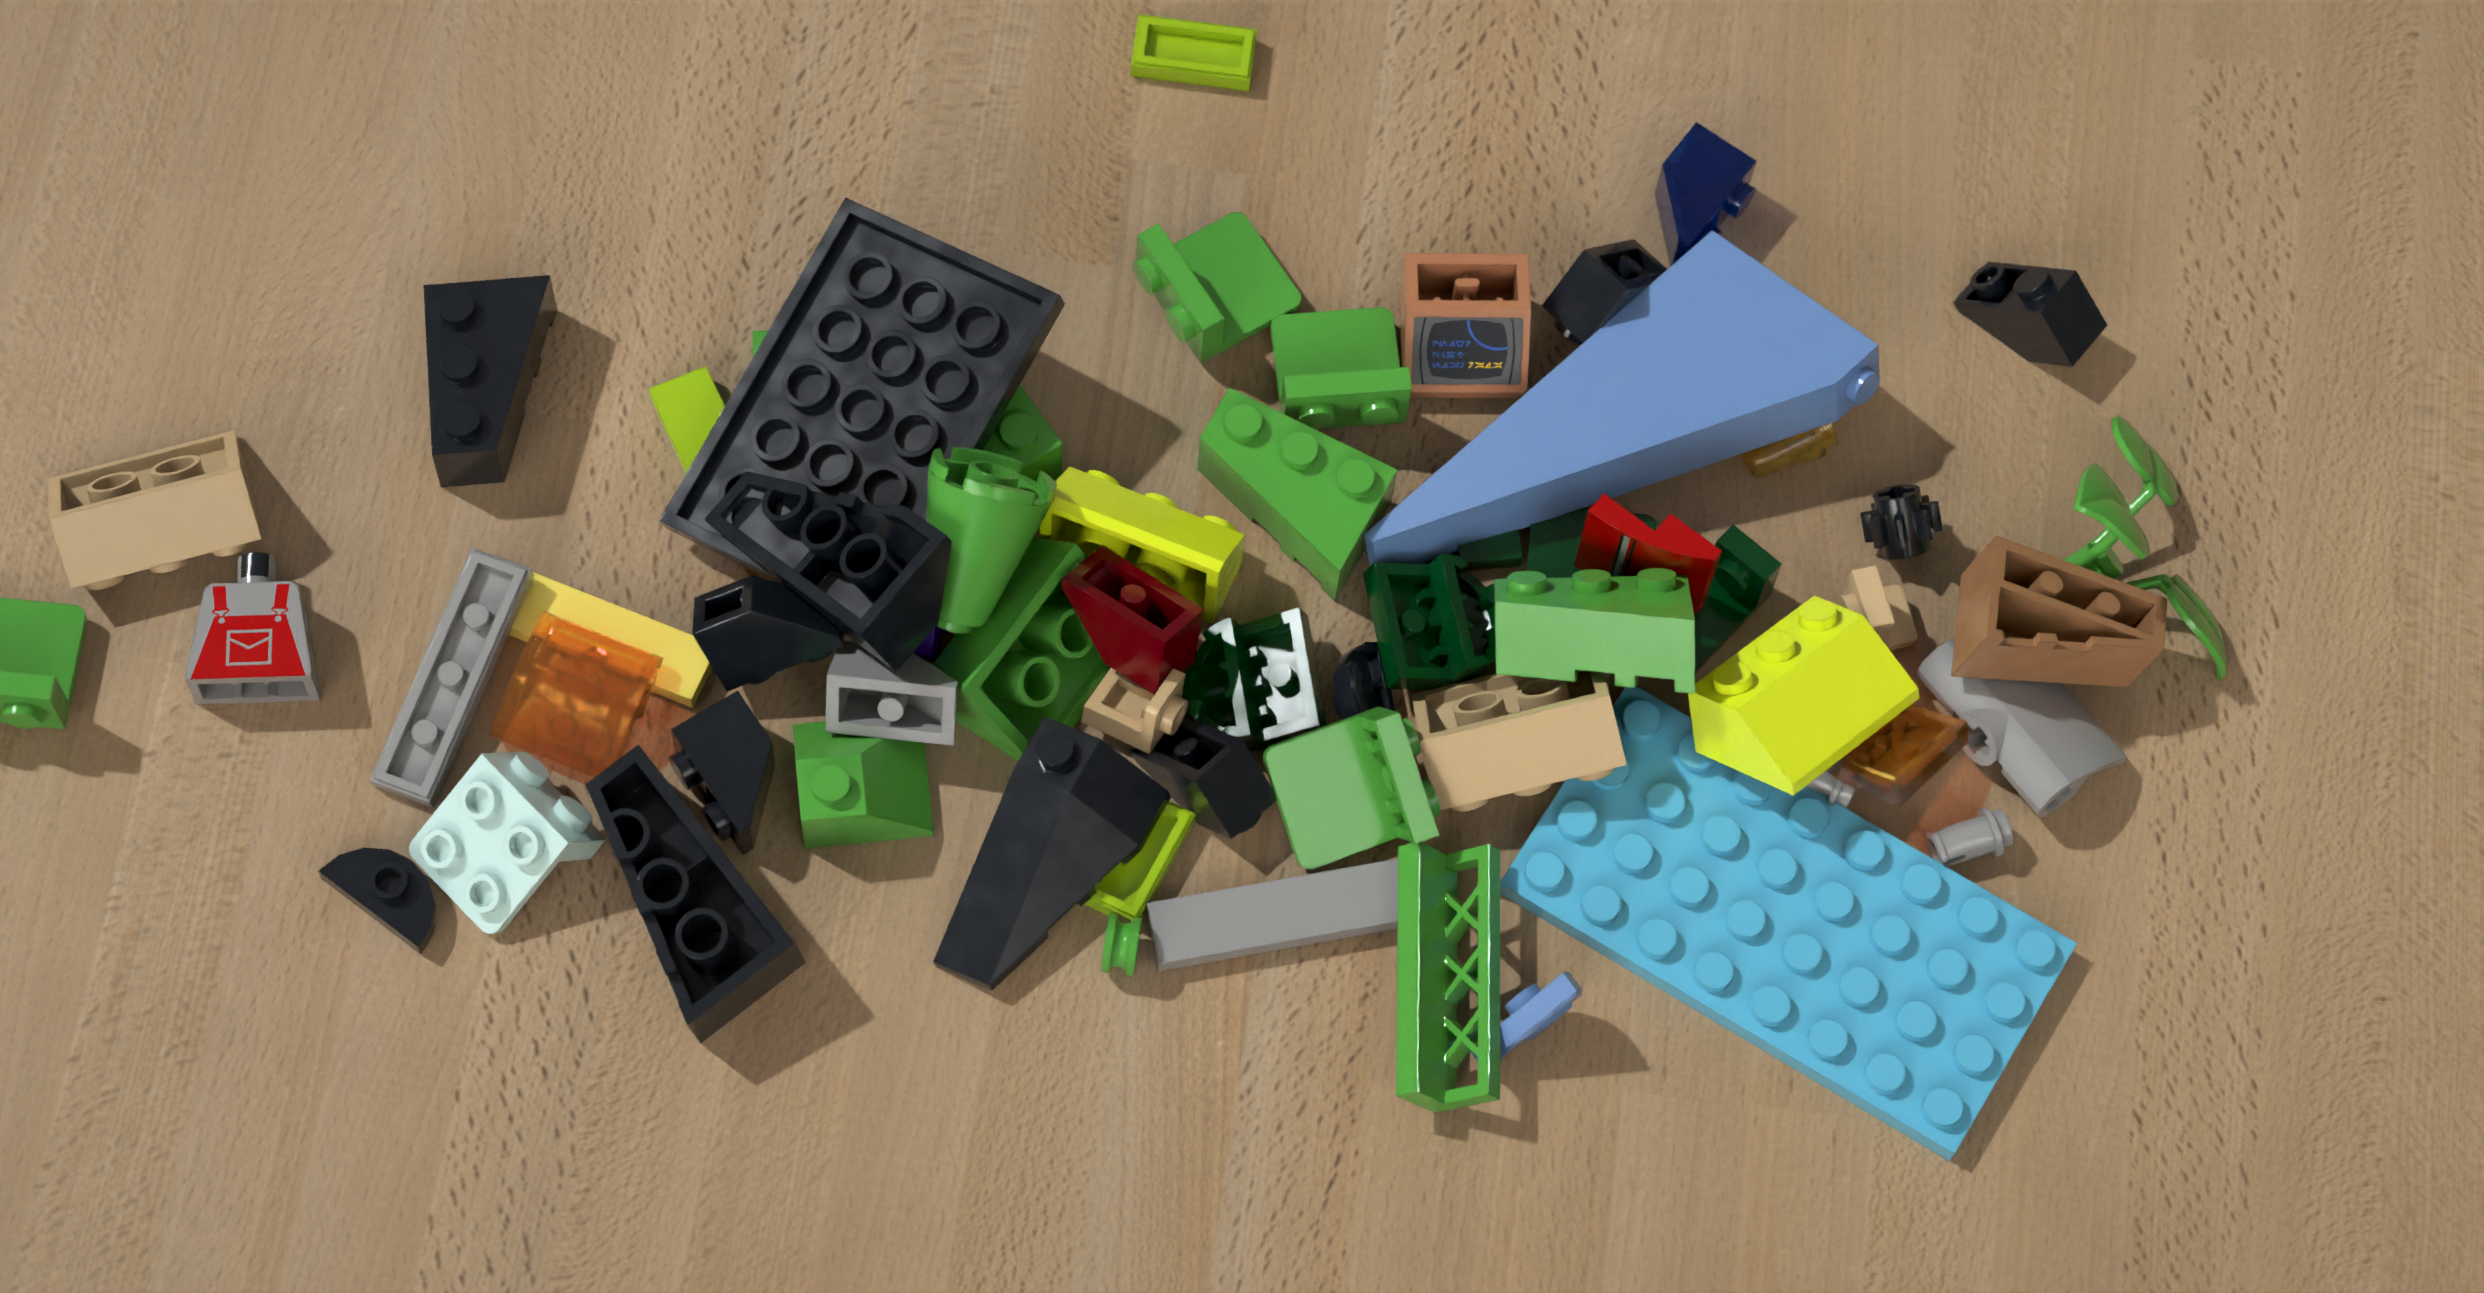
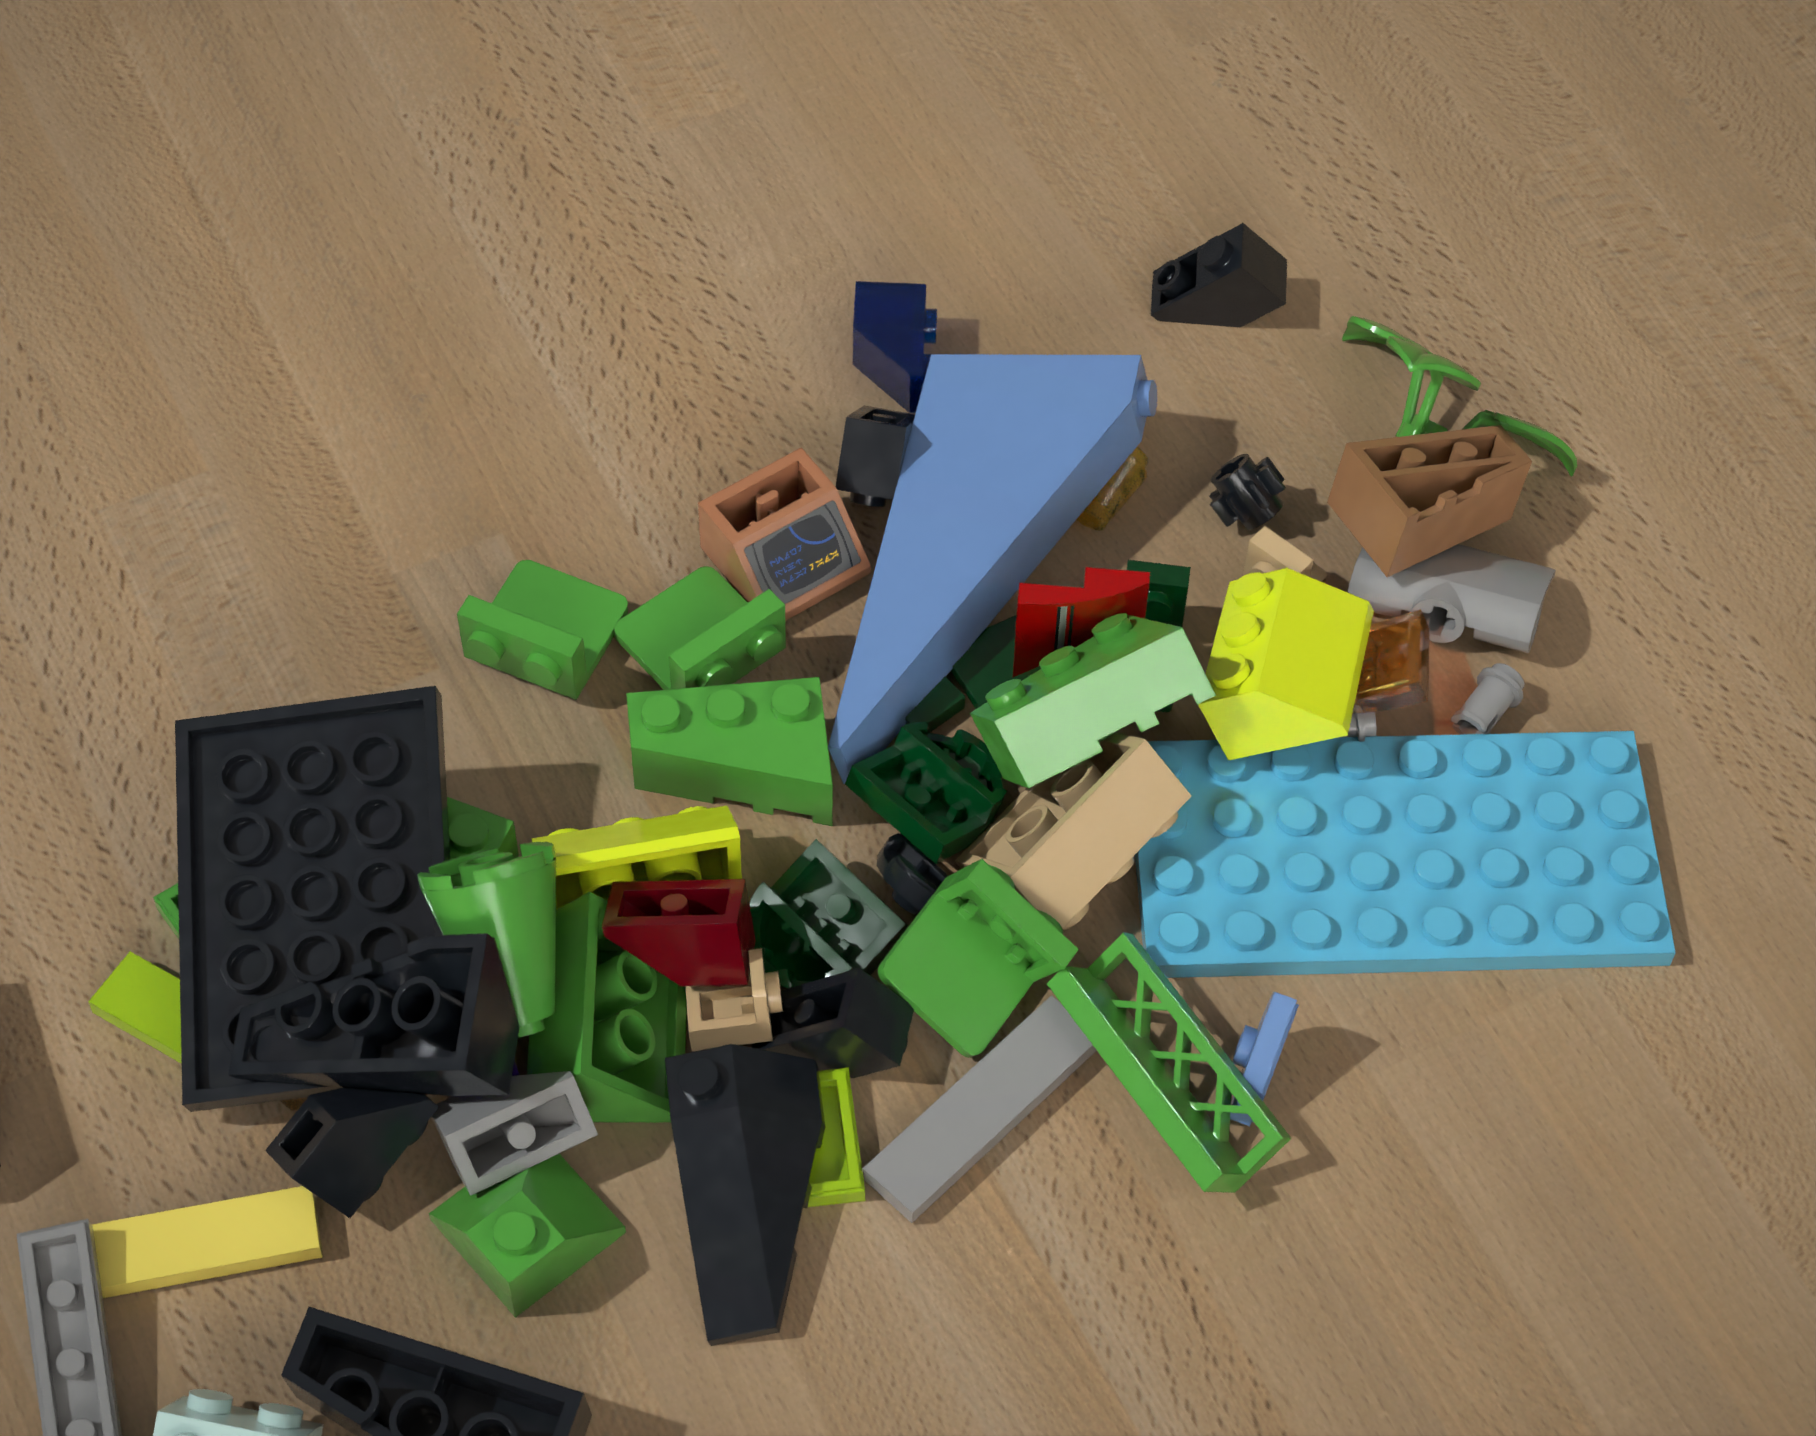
camera: 30 degrees left, 10 degrees down
(575, 695) = (207, 1310): clear orange slope -> none
(731, 765) = (395, 1281): black slope -> none
(1121, 945) = (868, 1217): bright green bush -> none
(1193, 52) = (388, 460): lime tile -> none

